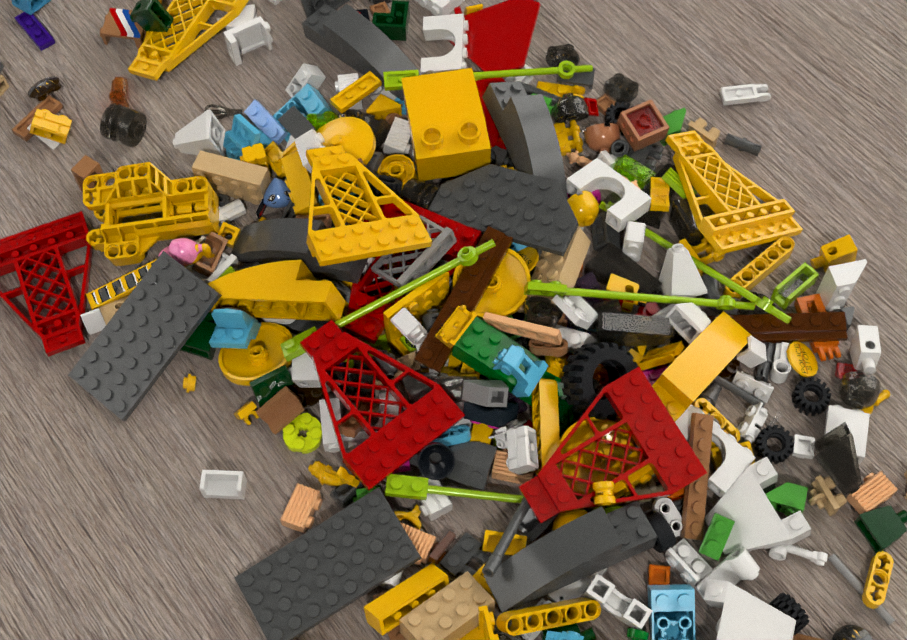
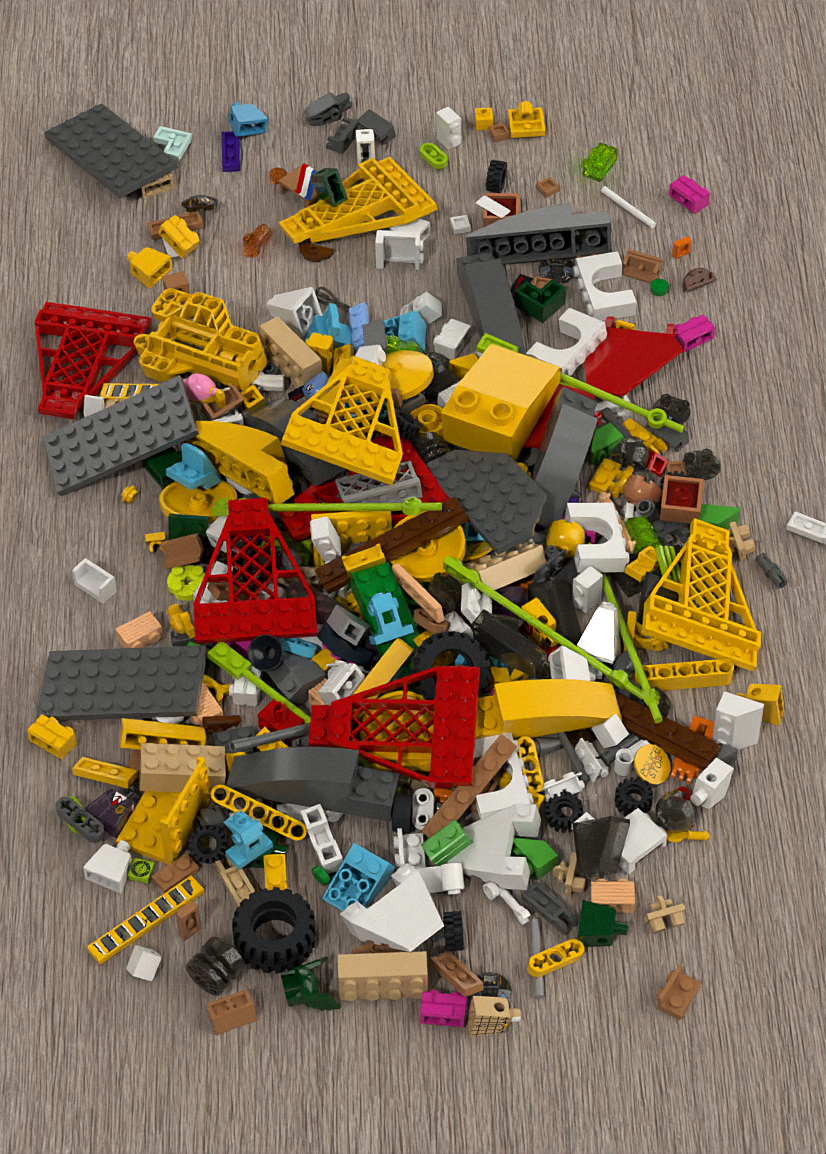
camera: 35 degrees right, 10 degrees down
(42, 166) = (149, 265): none -> yellow torso
(92, 30) = (276, 174): none -> clear orange tile
(123, 125) = (236, 265): clear smoke wheel -> none
(175, 79) = (314, 252): none -> reddish brown plate
(355, 92) = (451, 339): yellow plate -> none
(489, 514) = (277, 717): none -> red brick
(592, 232) = (551, 568): none -> dark grey hinge
(604, 493) = (370, 743): yellow wheel -> none
(658, 575) = (379, 847): orange tile -> none
(794, 285) = (698, 704): lime window -> none
(834, 537) = (549, 907): none -> dark grey hinge

